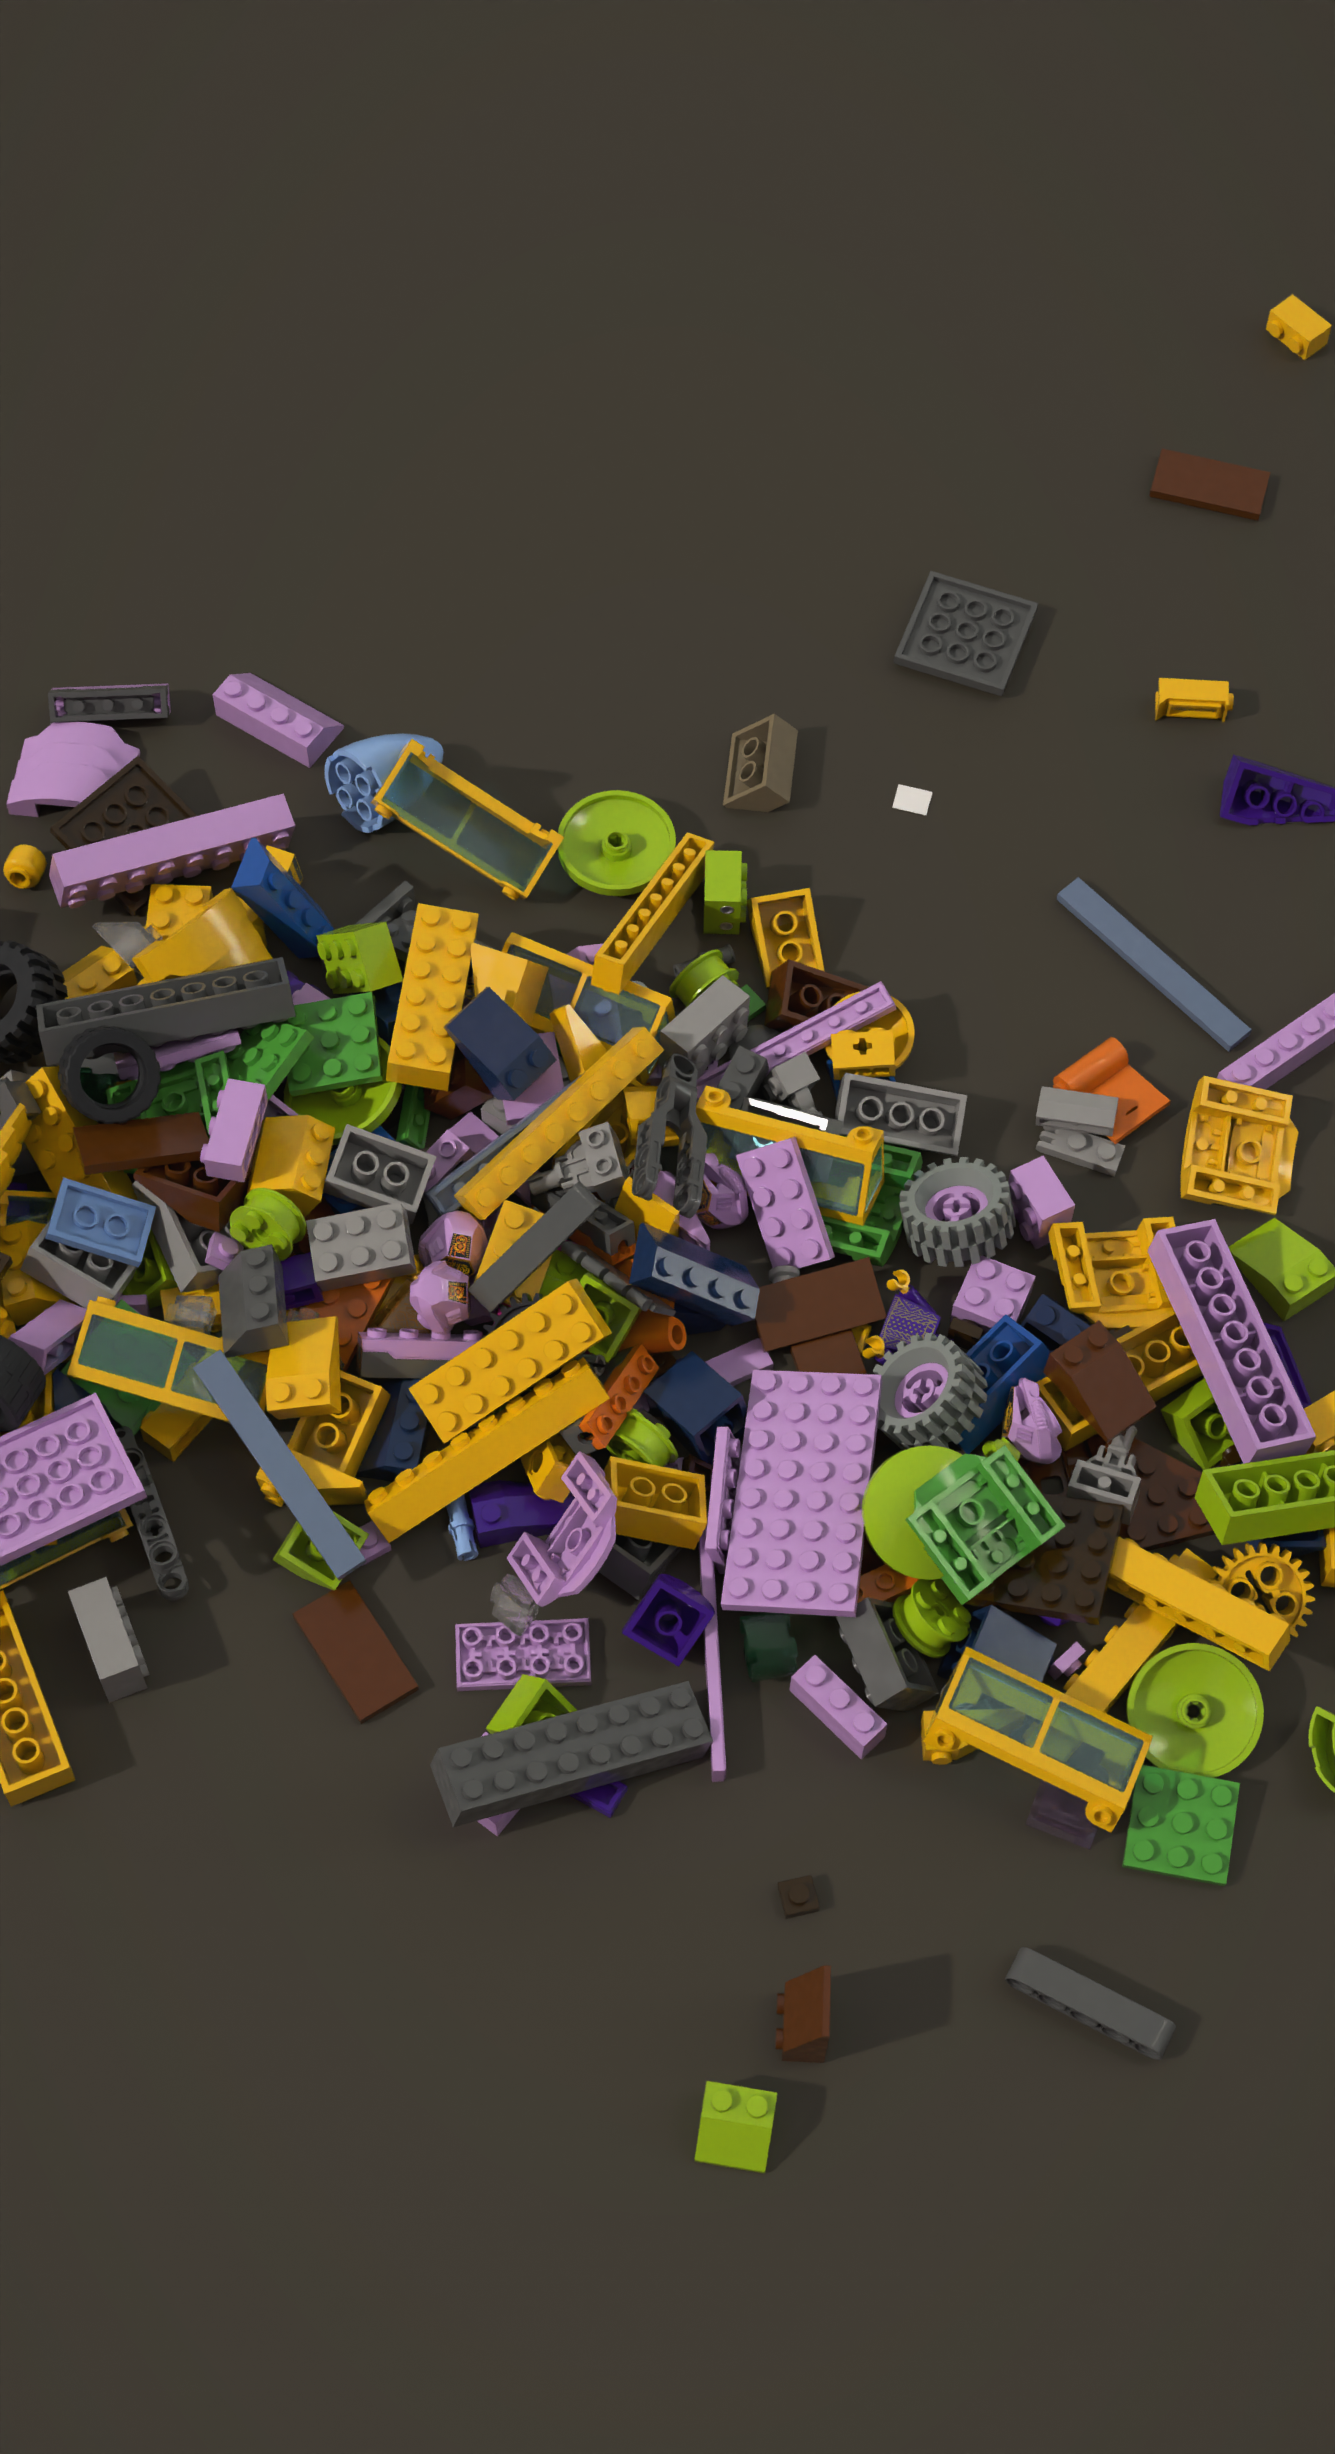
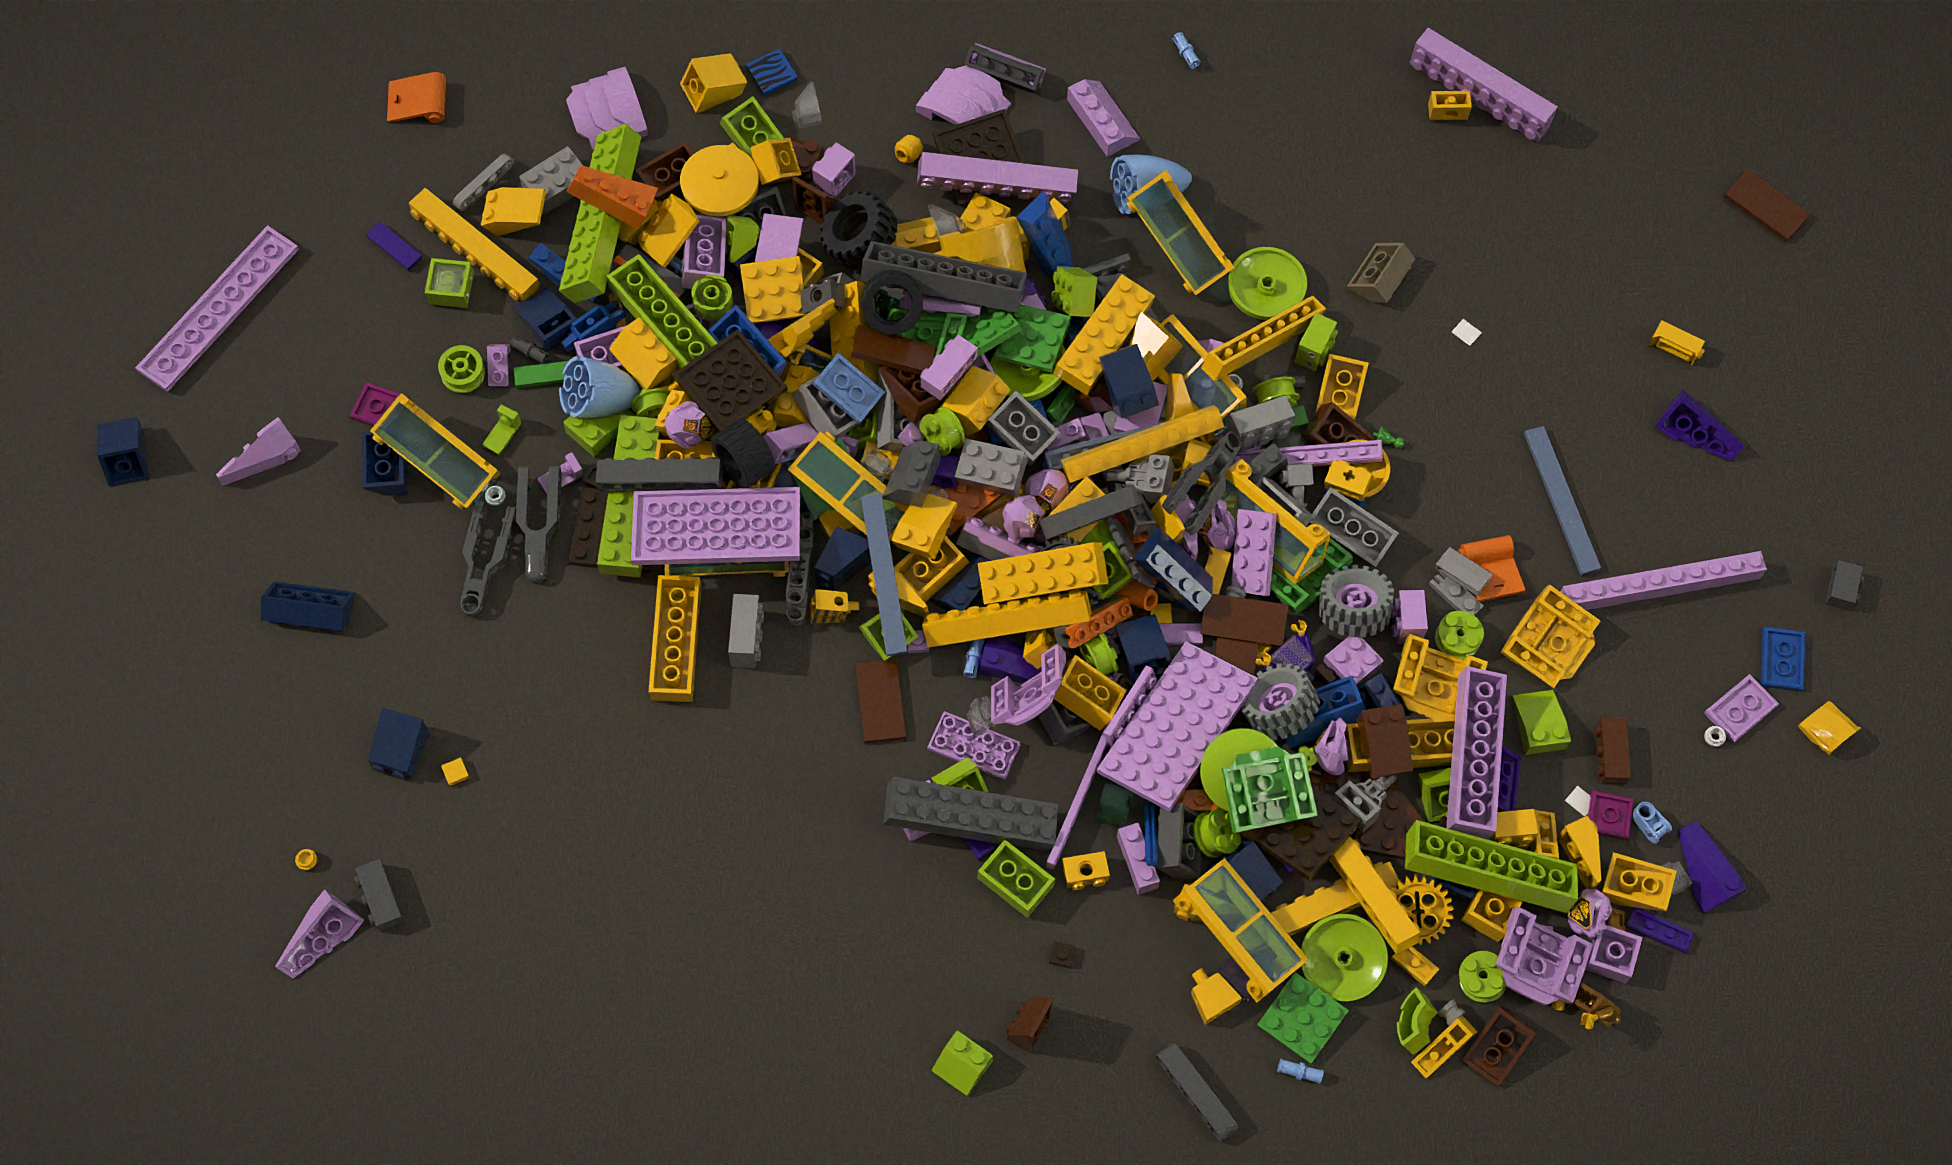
camera: 25 degrees right, 5 degrees up
(203, 1471) = (841, 559): none -> dark blue slope
(219, 1548) = (831, 606): none -> yellow torso
(350, 586) = (1186, 50): none -> light blue pin
(669, 1618) = (1065, 763): dark purple brick -> none
(680, 1816) = (1016, 878): none -> lime brick
(699, 1345) = (1163, 613): none -> yellow tile
(740, 517) = (1449, 105): none -> yellow brick
(741, 1246) = (1217, 567): none -> yellow window
(770, 474) = (1487, 86): none -> lavender brick
(780, 1741) = (1094, 862): none -> yellow brick
(841, 1663) = (1150, 828): none -> blue axle
(872, 977) = (1388, 439): none -> bright green piece
(966, 633) = (1555, 239): dark grey plate -> none
(1041, 1853) = (1213, 995): none -> yellow torso
(1067, 1662) = (1285, 895): lavender plate -> none
(1114, 1197) = (1459, 634): none -> lime wheel
(1216, 1902) = (1300, 1071): none -> light blue pin
(1295, 1677) = (1416, 965): none -> yellow plate
(1298, 327) = (1883, 123): yellow brick -> none

